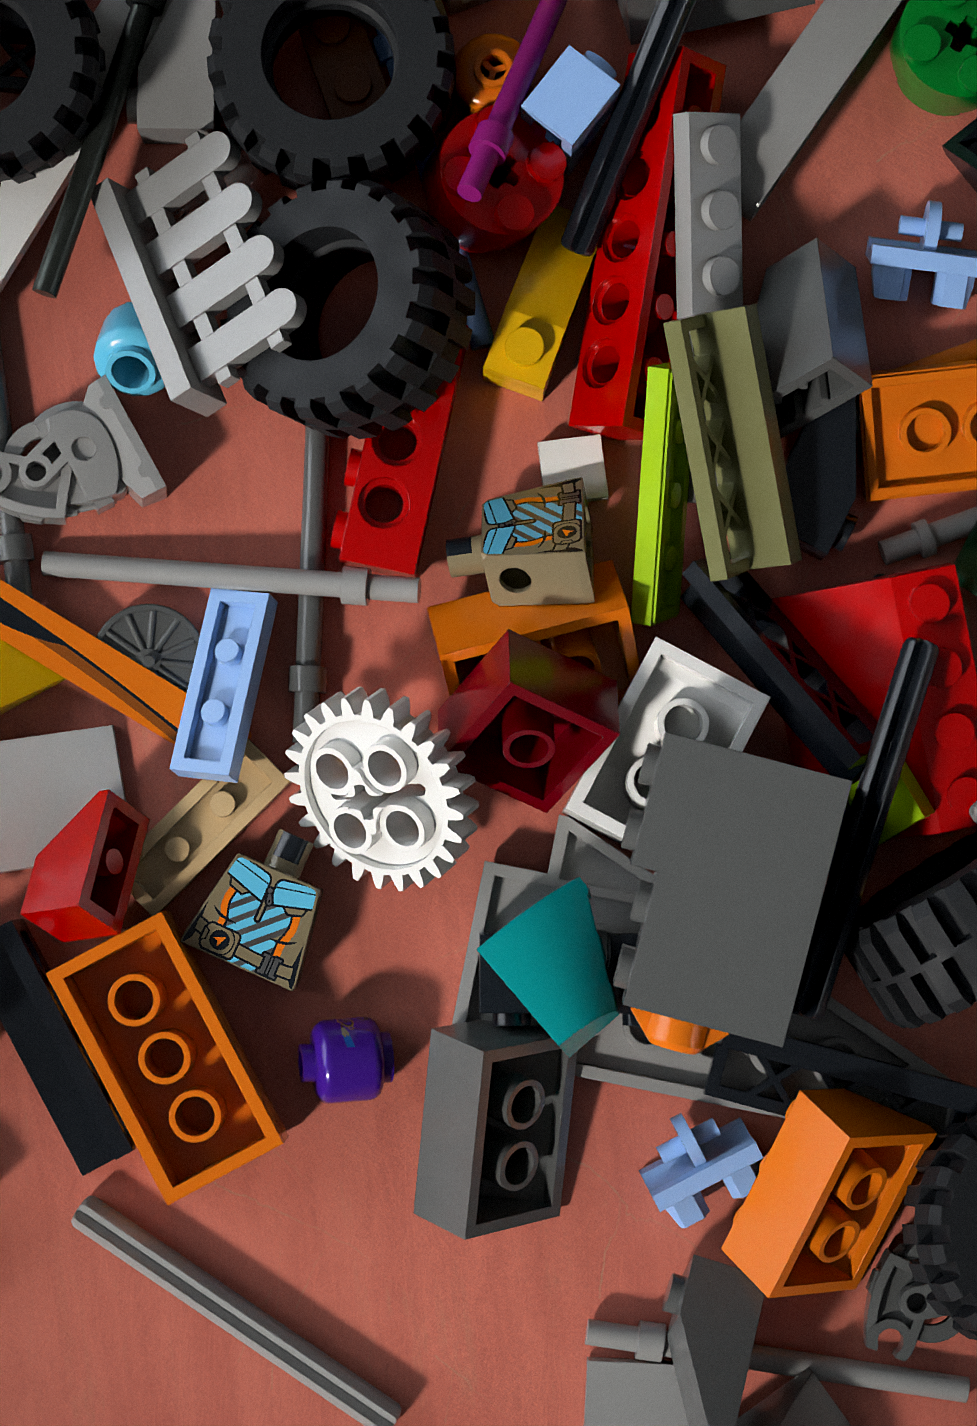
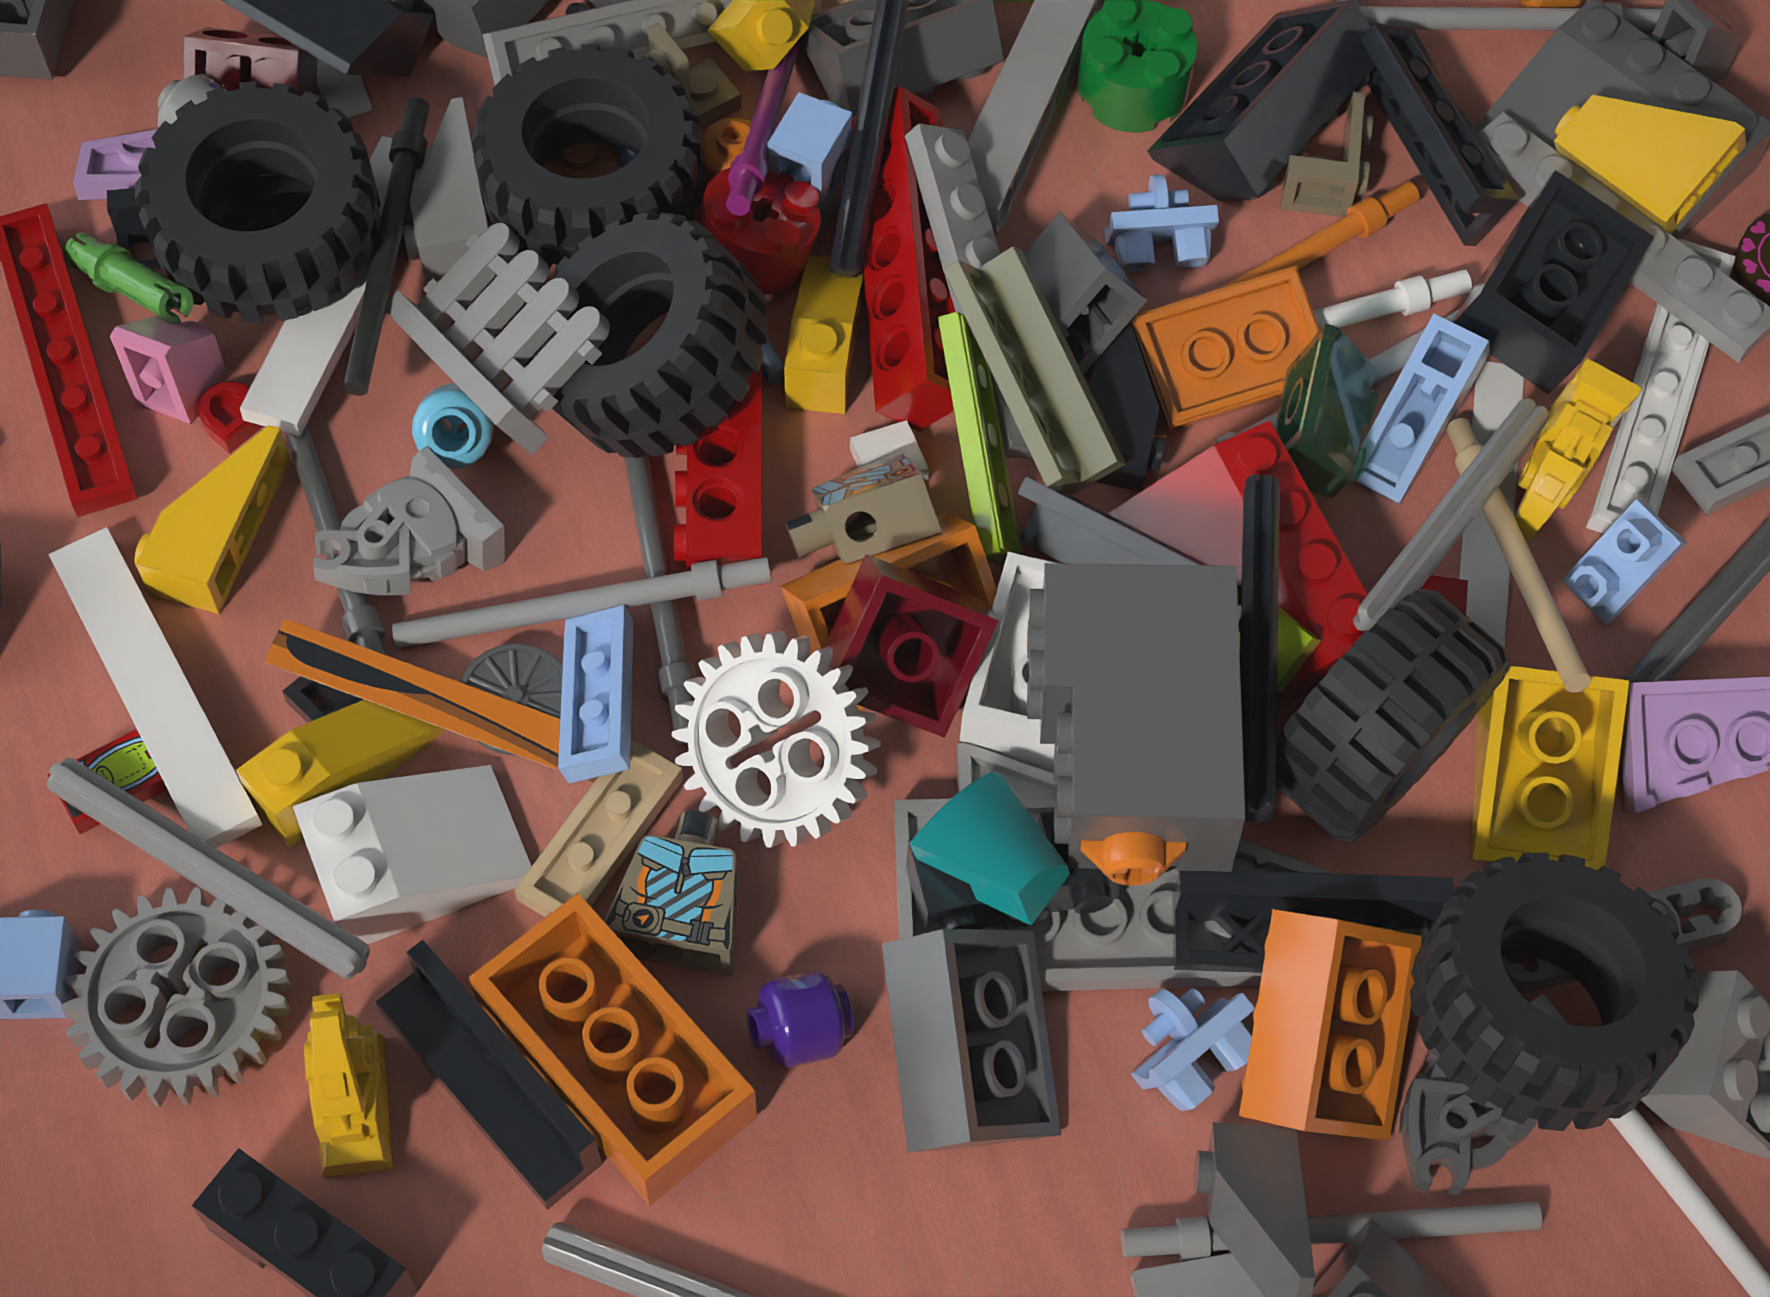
camera: 15 degrees left, 25 degrees down
(87, 871) = (492, 881): red slope -> none

